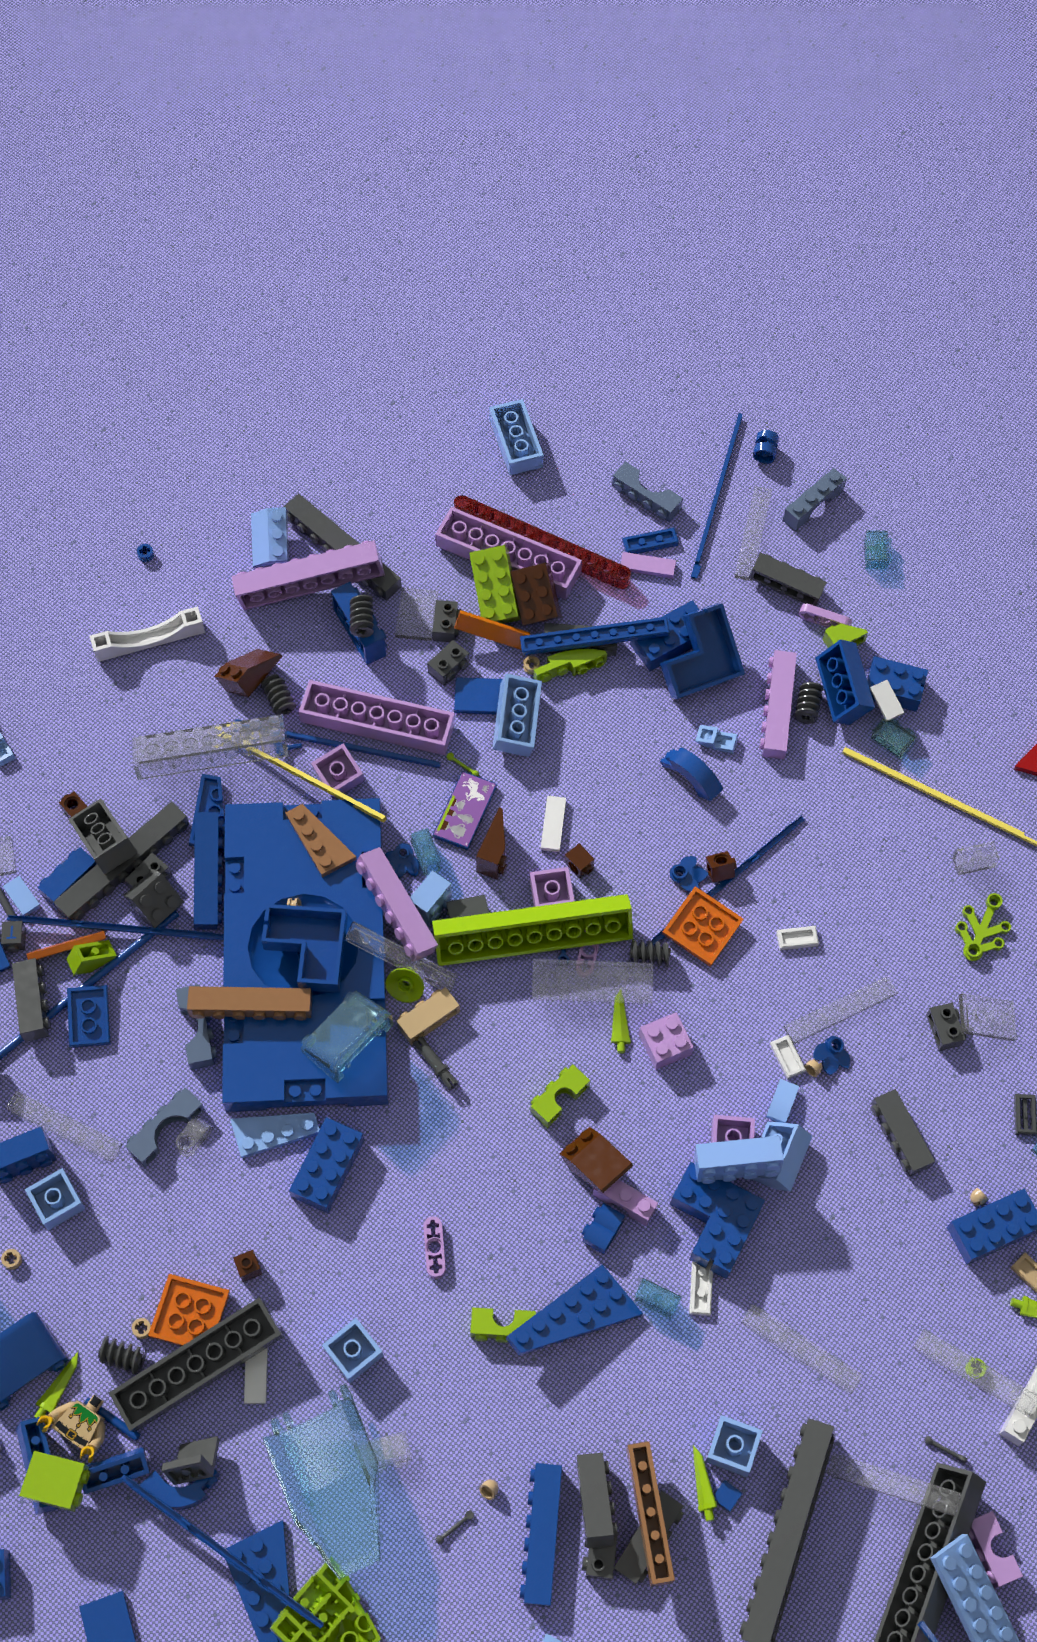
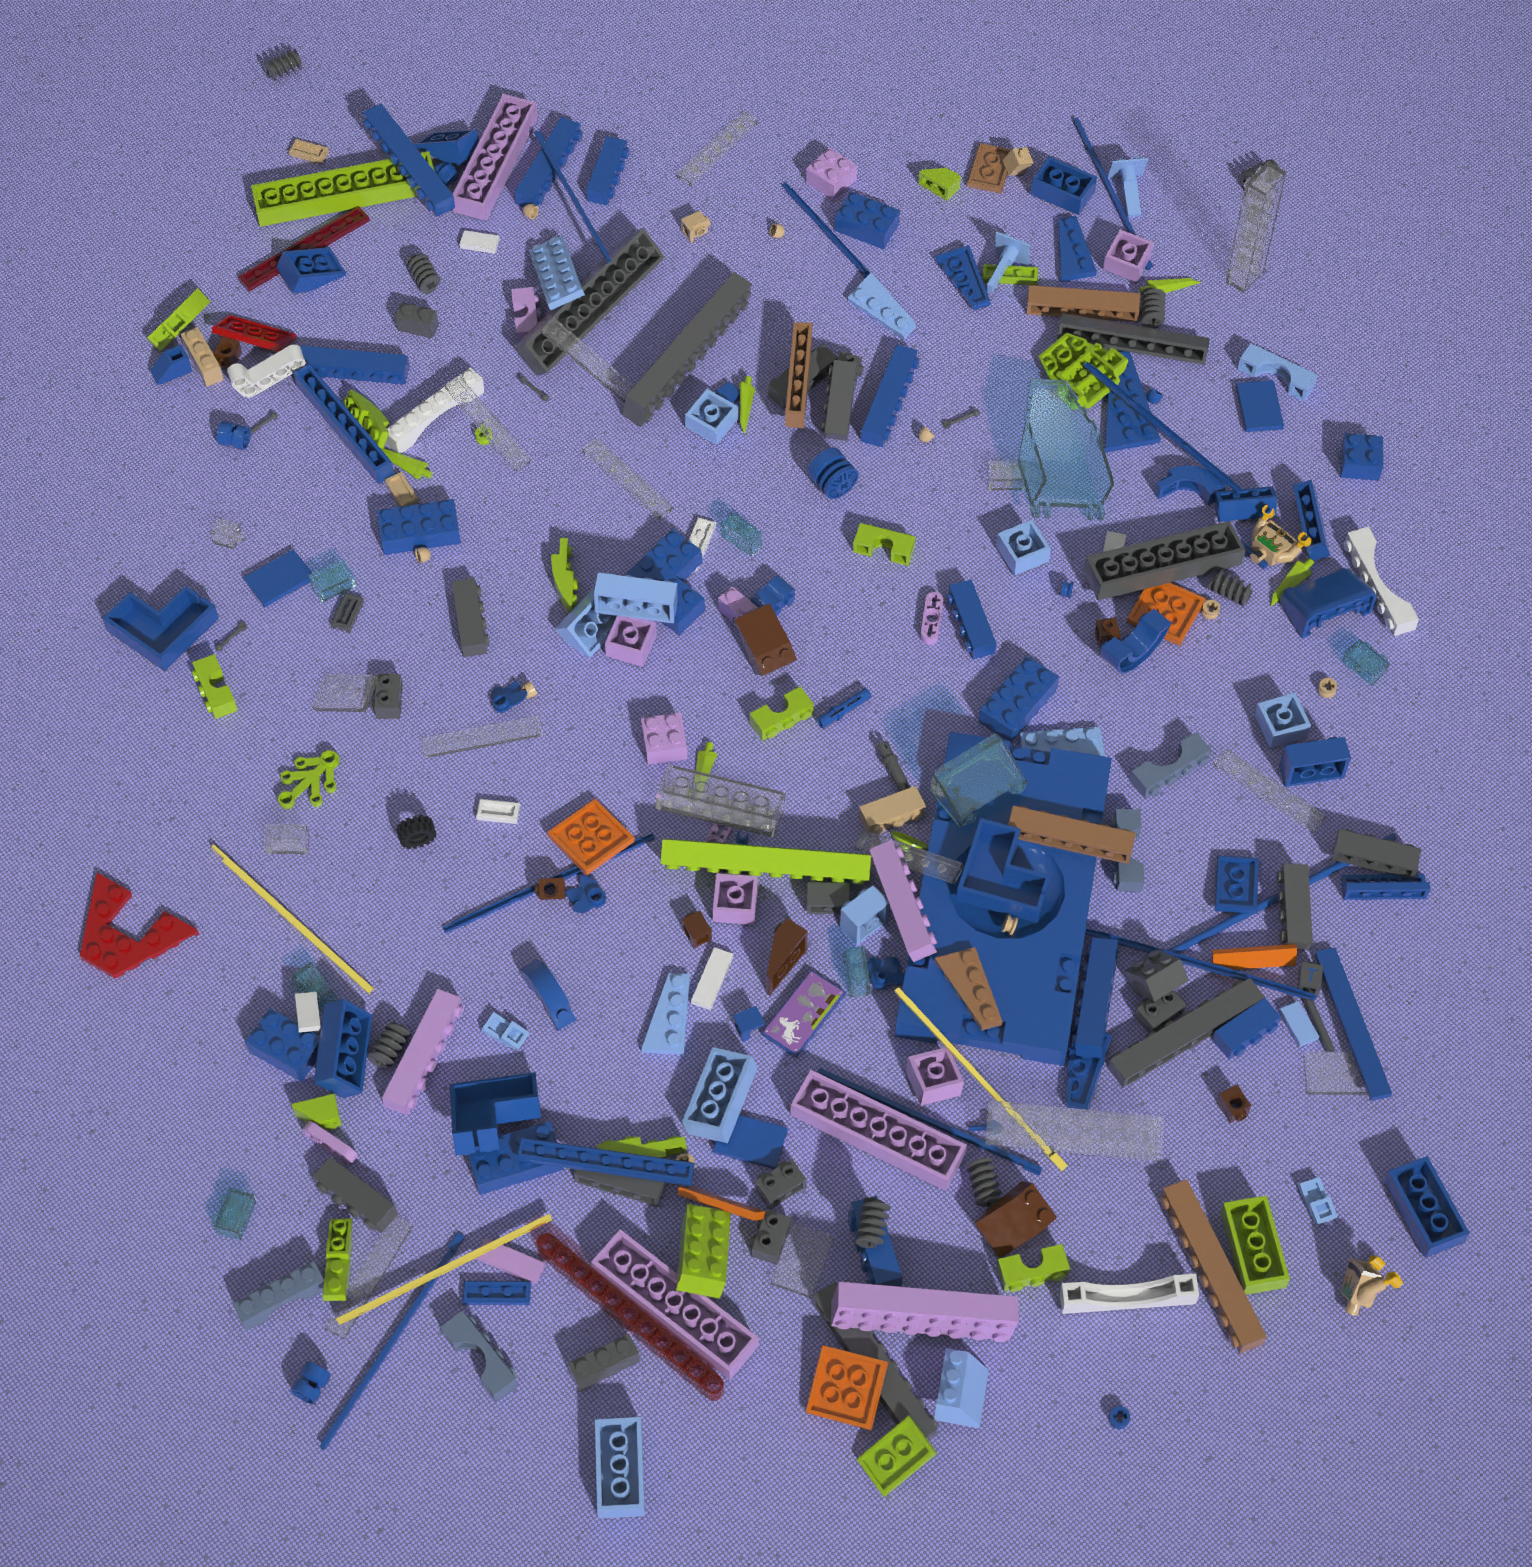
camera: 165 degrees left, 5 degrees down
(47, 692) = (1254, 1245): none -> lime brick
(55, 1481) = (1296, 487): lime brick -> none
(82, 675) = (1213, 1267): none -> medium nougat brick
(90, 956) = (1232, 935): lime slope -> none
(102, 836) = (1205, 1047): dark grey brick -> none
(194, 1133) = (1144, 750): clear piece -> none
(194, 1461) = (1175, 493): dark grey bracket -> none
(219, 1249) = (1137, 646): none -> blue brick
(235, 1615) = (1154, 396): none -> blue hinge
(240, 633) = (1016, 1275): none -> lime arch
(298, 1314) = (1067, 589): none -> blue bush
(310, 485) = (897, 1456): none -> lime tile
(358, 519) = (846, 1387): none -> orange plate
(392, 1251) = (971, 619): none -> blue brick
(450, 756) = (782, 1053): lime hinge -> none
(506, 1112) = (825, 719): none -> blue pin
(510, 786) = (747, 1021): none -> blue panel
(536, 594) = (658, 1228): reddish brown brick -> none
(550, 504) = (603, 1362): none -> dark grey brick
(579, 779) = (669, 1020): none -> light blue wing
(579, 1396) = (833, 473): none -> blue wheel
(582, 1309) = (807, 539): blue wing -> none
(649, 952) = (653, 821): dark grey piece -> none
(694, 545) = (444, 1269): none -> light yellow piece
(779, 531) = (338, 1260): none -> lime slope
(782, 1101) = (570, 666): light blue slope -> none
(787, 1057) = (550, 706): white tile -> none
(823, 1196) = (563, 577): none -> lime slope
(862, 889) = (416, 832): none -> black tyre

